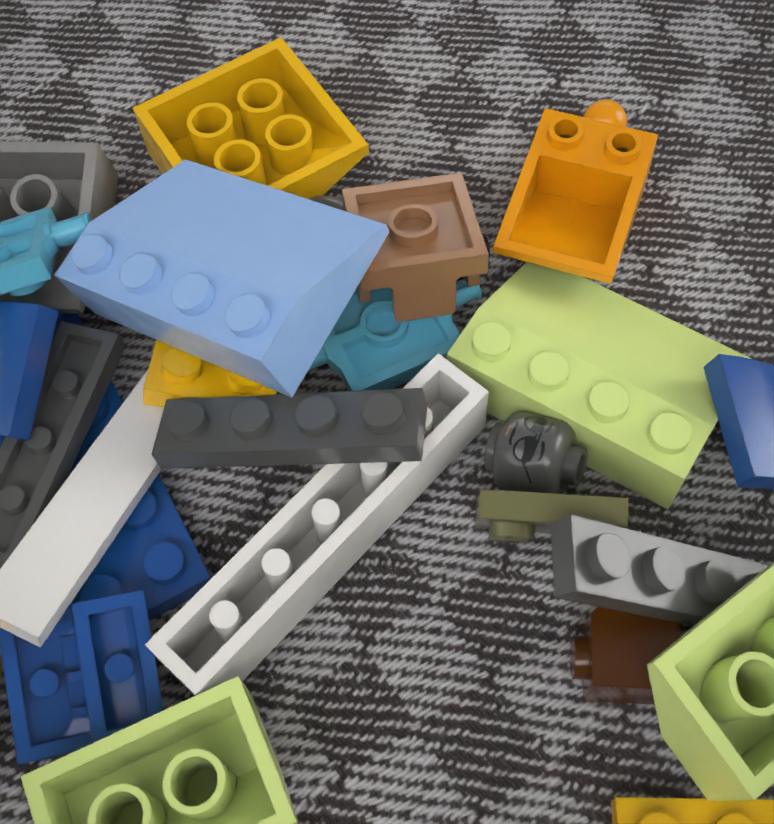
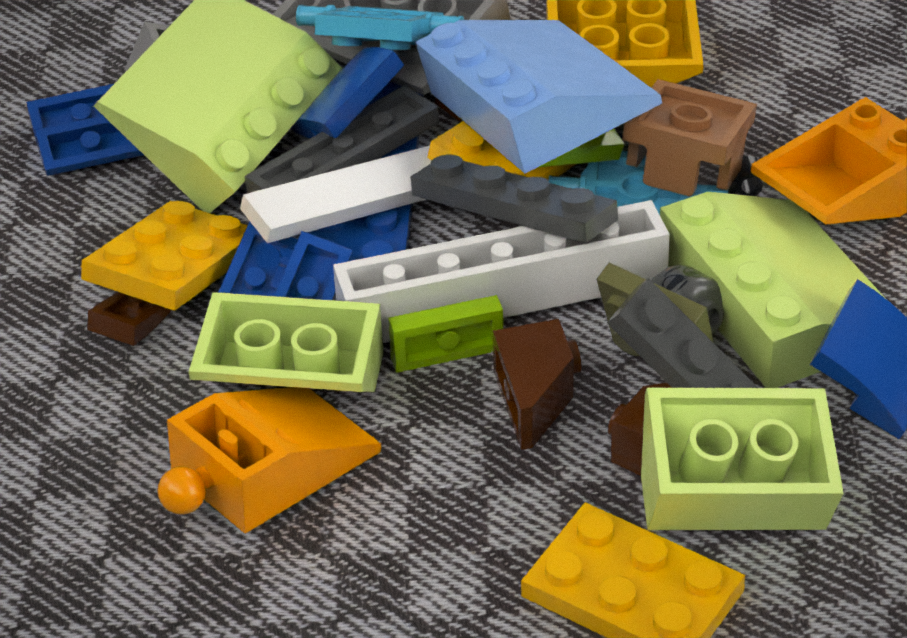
camera: 30 degrees right, 20 degrees down
(292, 656) = (444, 333): none -> lime plate
(447, 645) = (535, 375): none -> reddish brown slope

